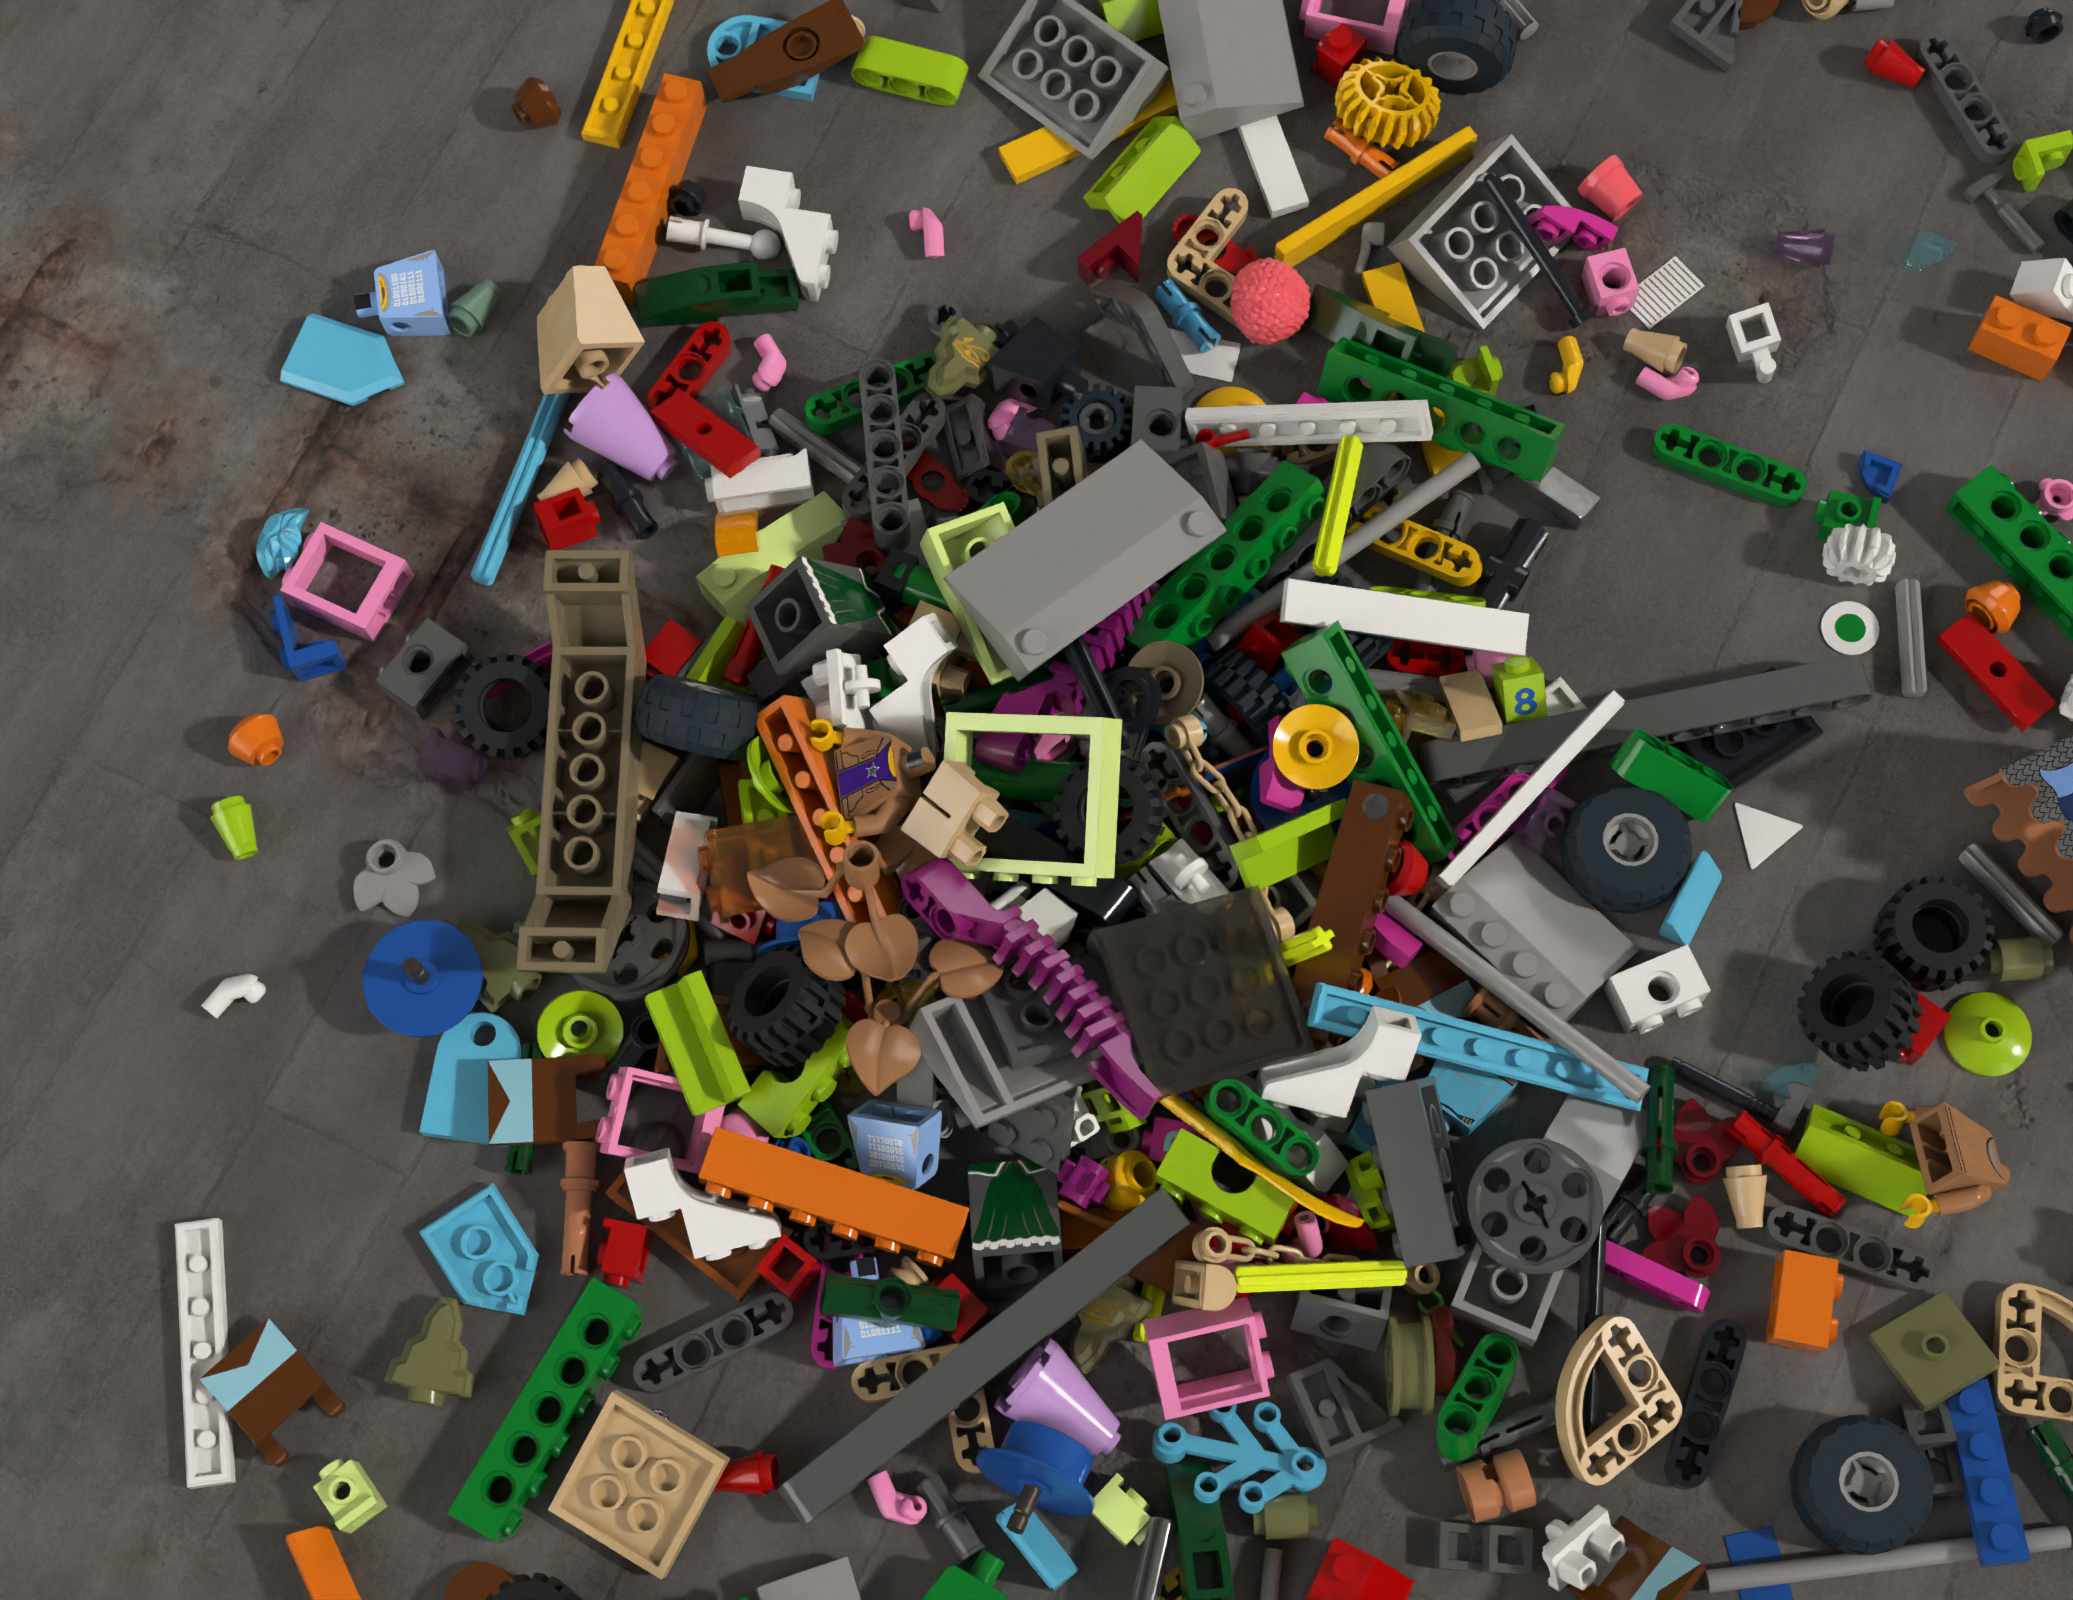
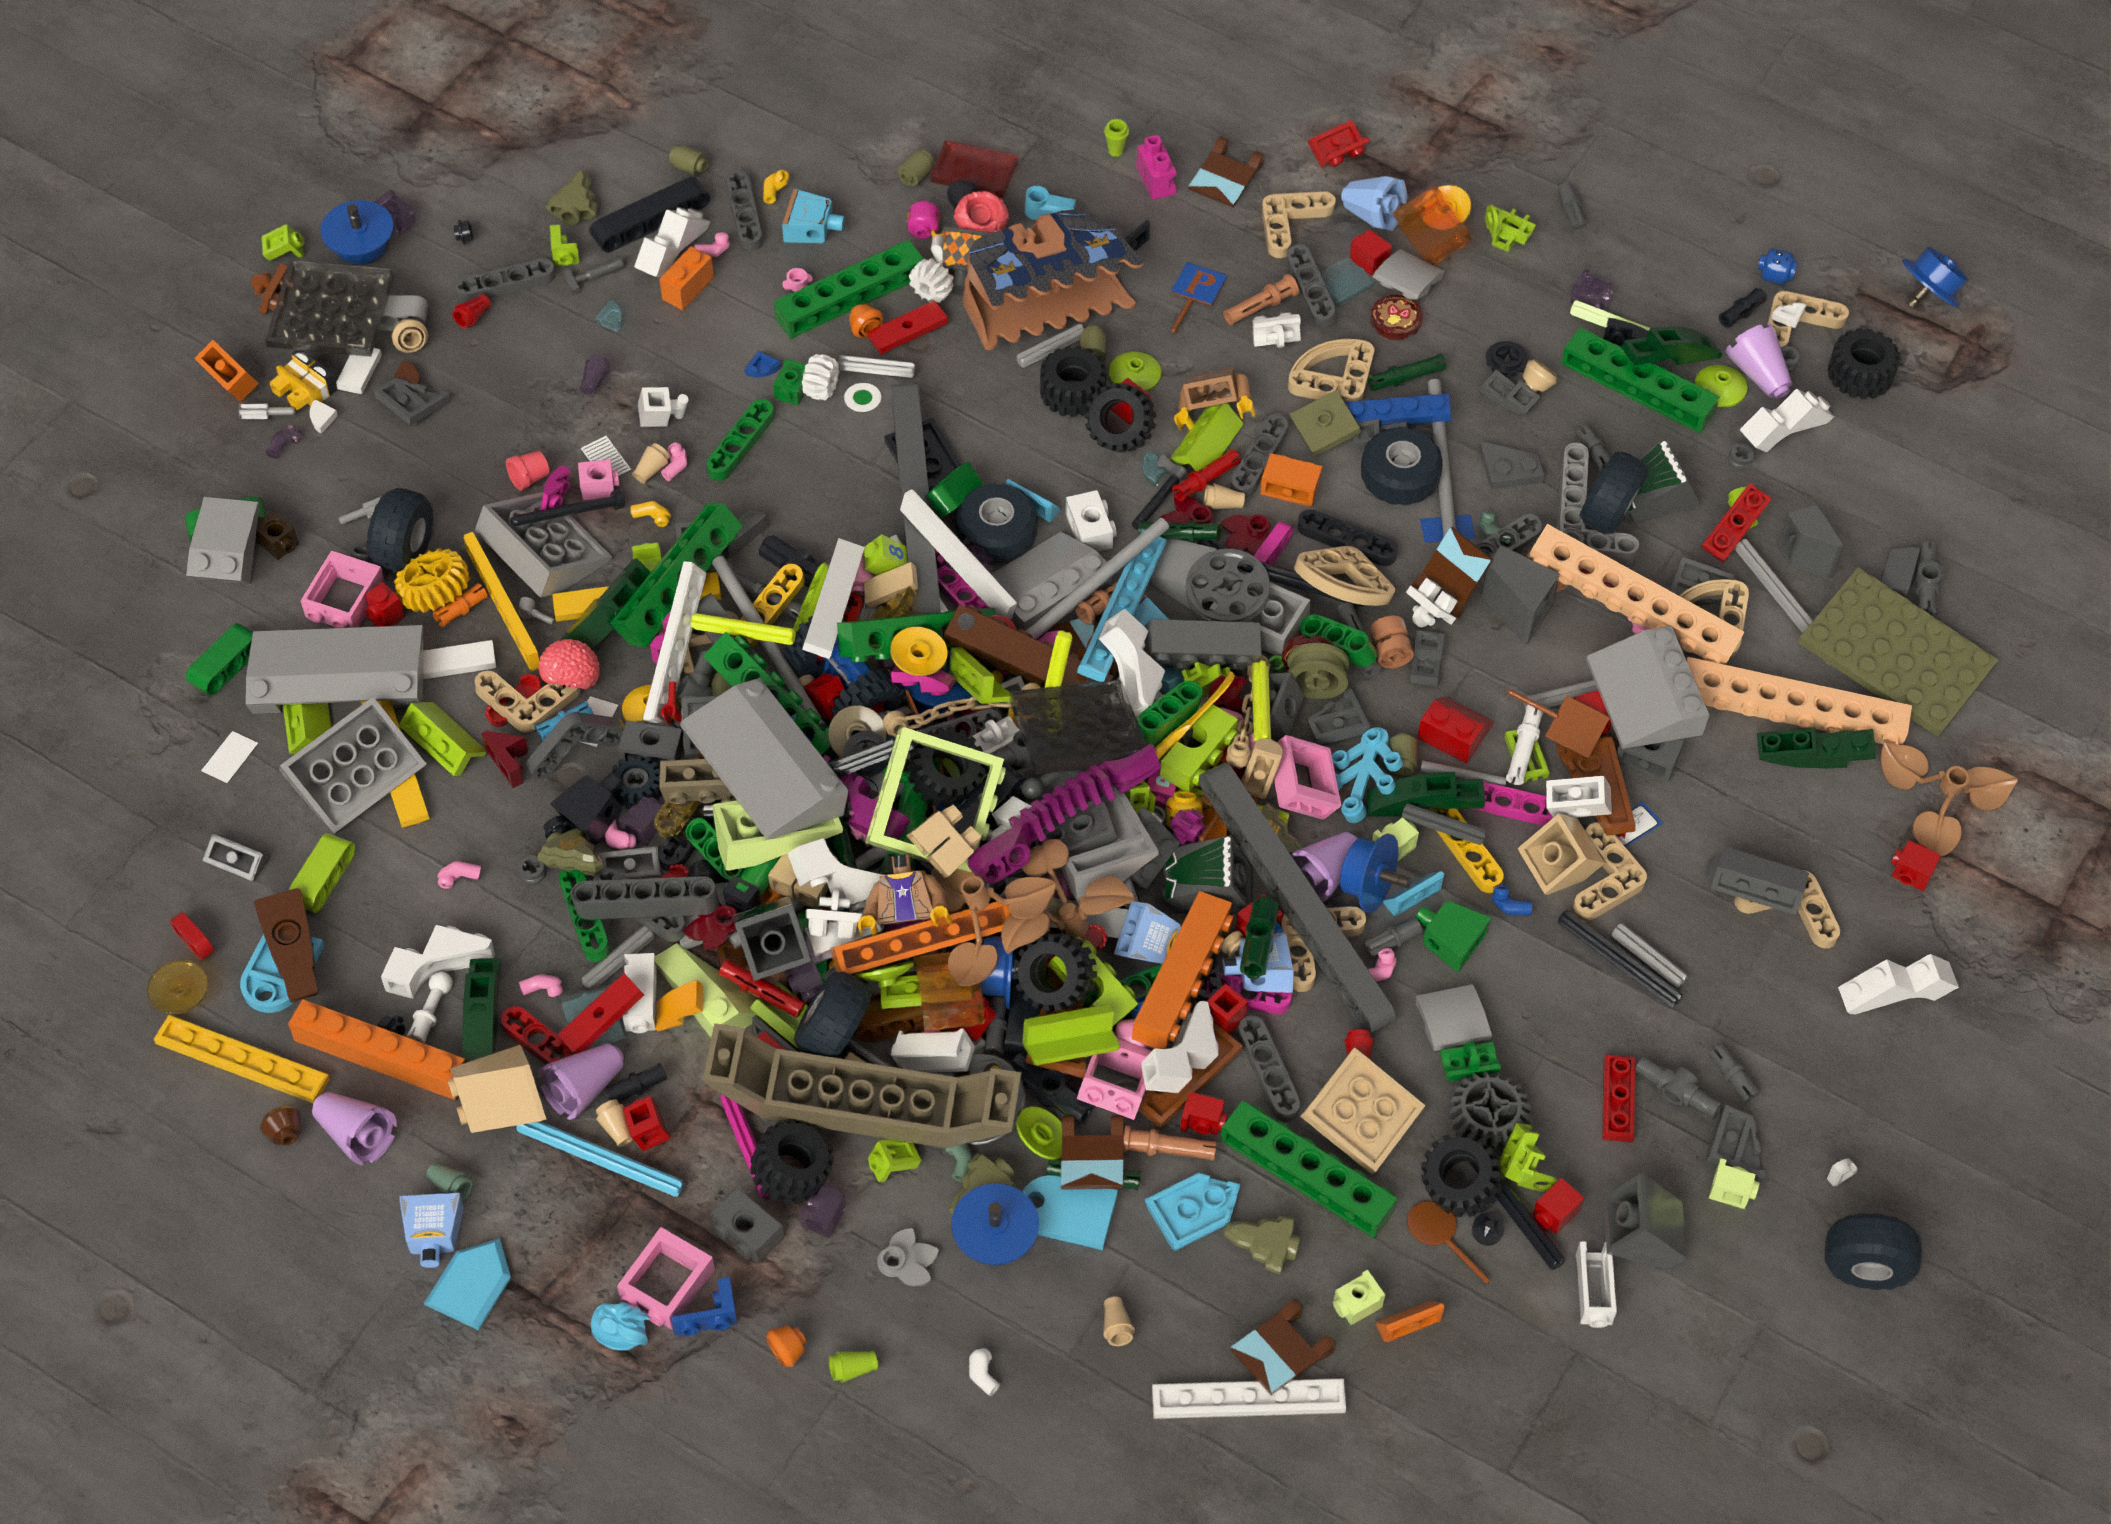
camera: 90 degrees left, 15 degrees down
(303, 1161) = (1117, 1324): none -> tan cone
(535, 180) = (355, 1126): none -> lavender cone
(1763, 832) = (992, 460): white sticker -> none

